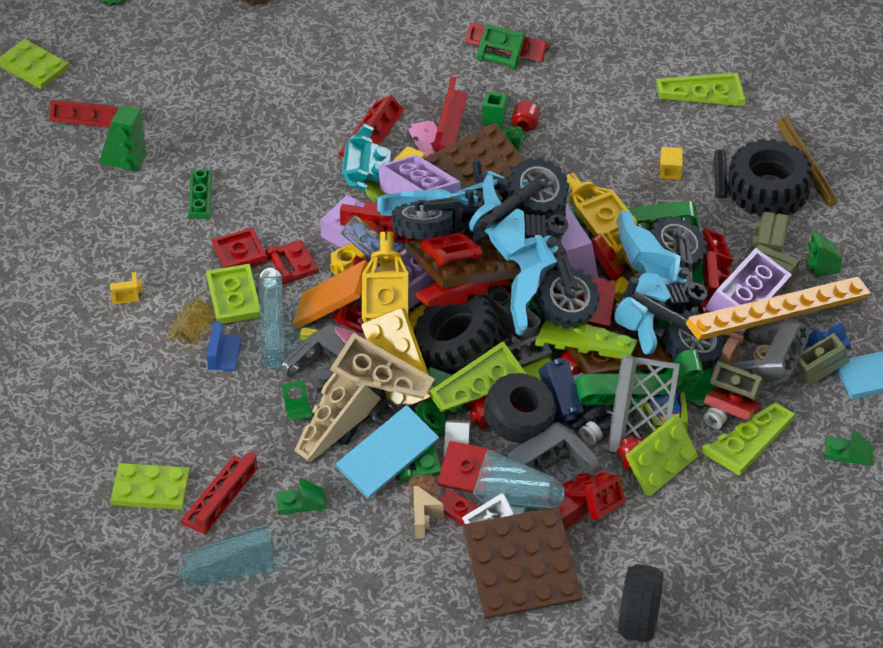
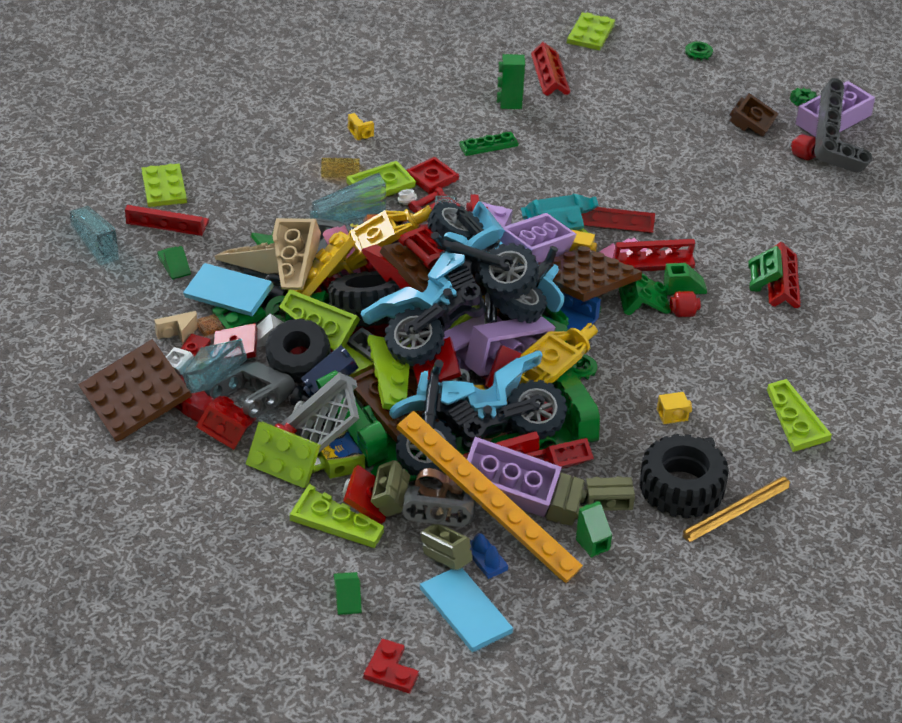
camera: 70 degrees right, 5 degrees down
(222, 349) = (316, 186): blue panel -> none
(640, 602) = (100, 462): black tyre -> none

